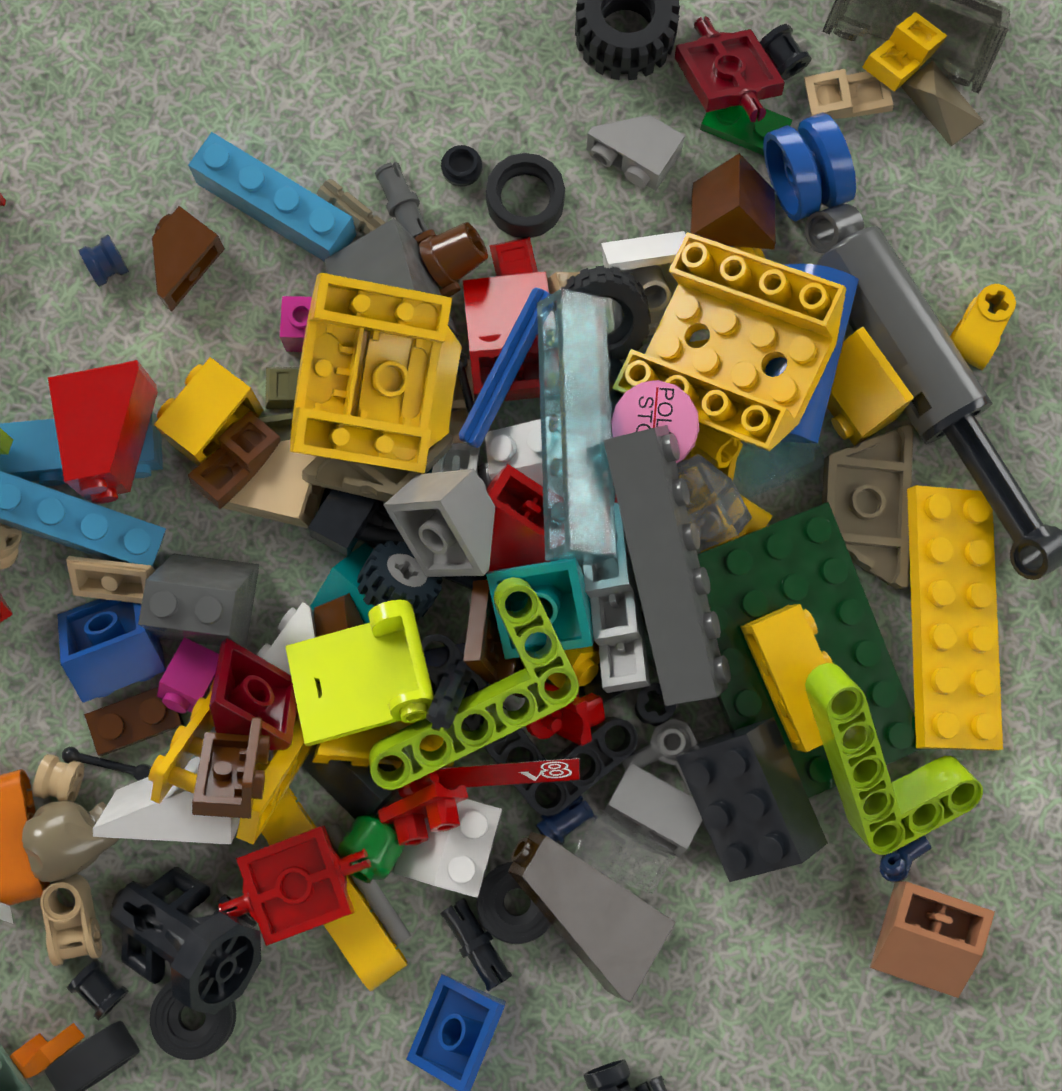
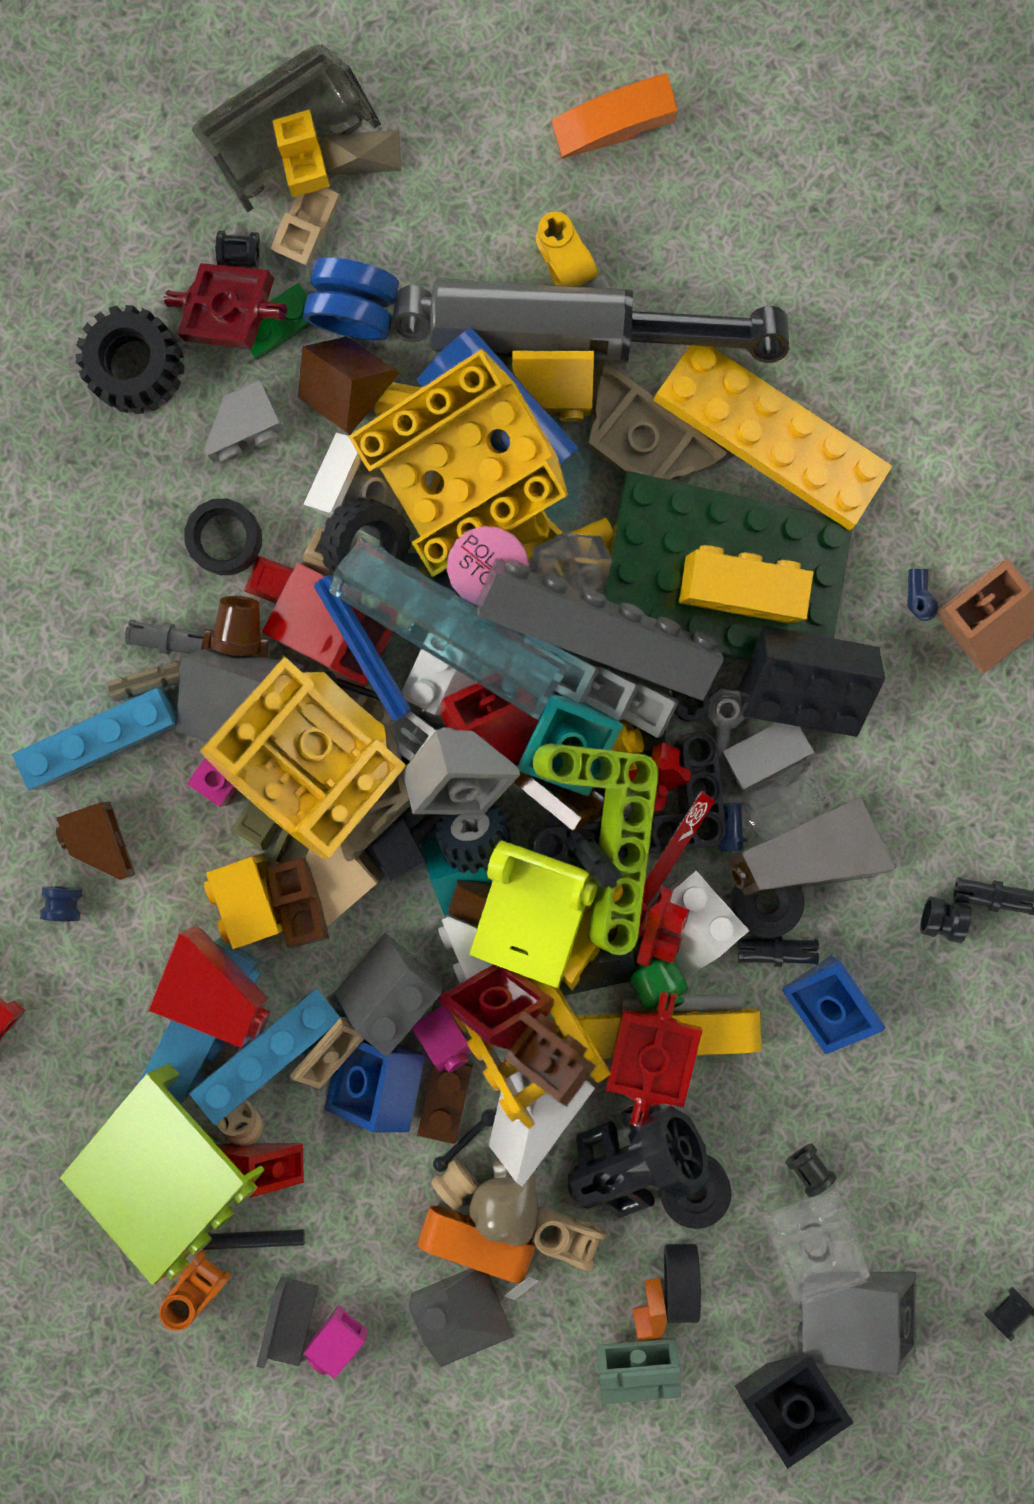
camera: 60 degrees left, 10 degrees up
(97, 989) = (630, 1248): black bush -> none
(461, 165) = (164, 570): black plate -> none
(882, 811) = (878, 591): lime beam -> none

